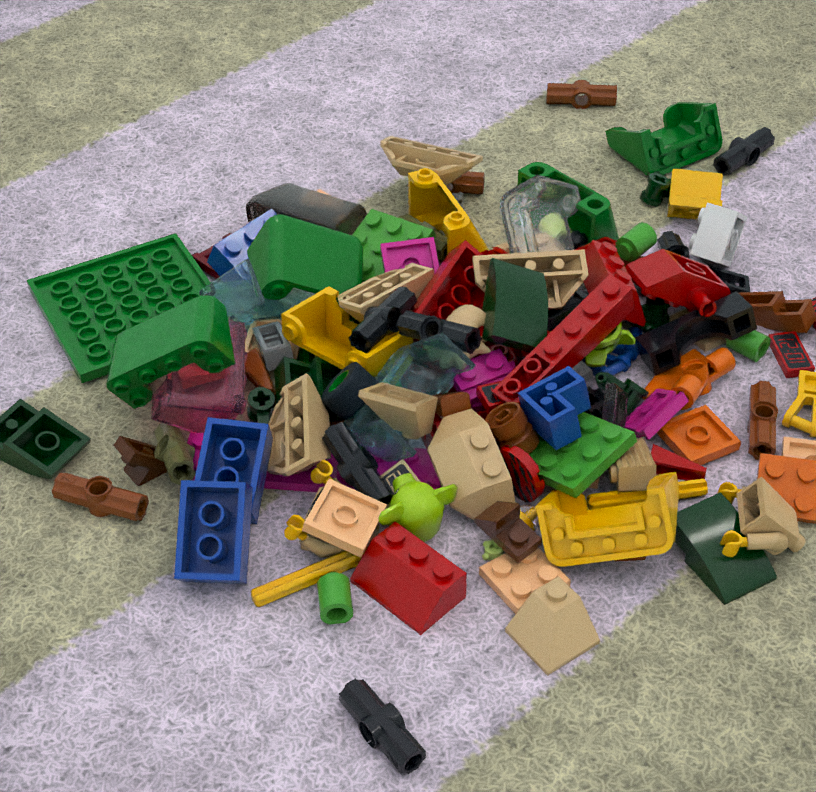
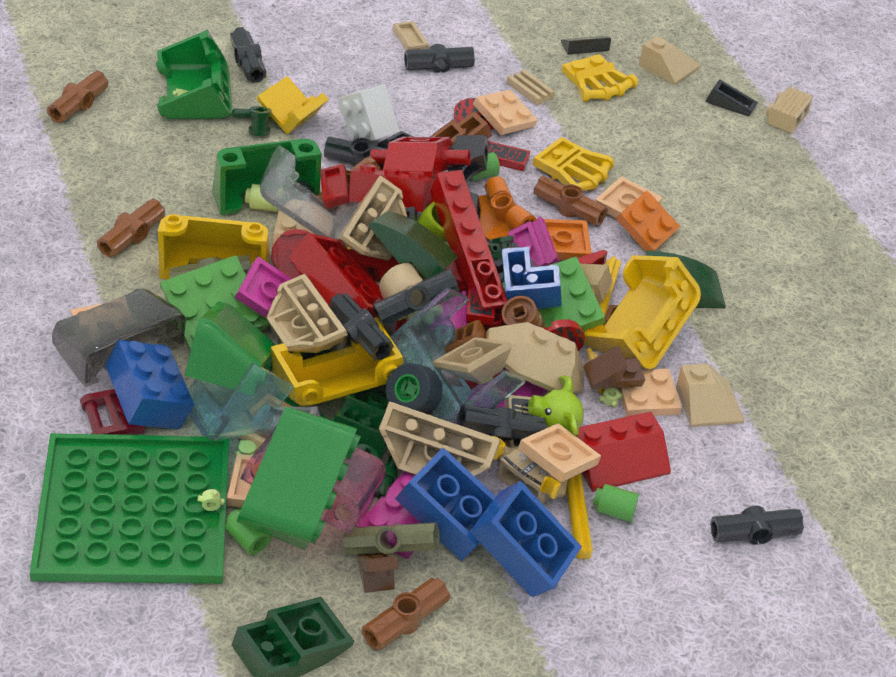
camera: 70 degrees left, 0 degrees up
(412, 156) = (132, 215): tan wedge -> none
(636, 242) = (352, 152): bright green brick -> none
(763, 519) = (680, 242): tan torso -> none

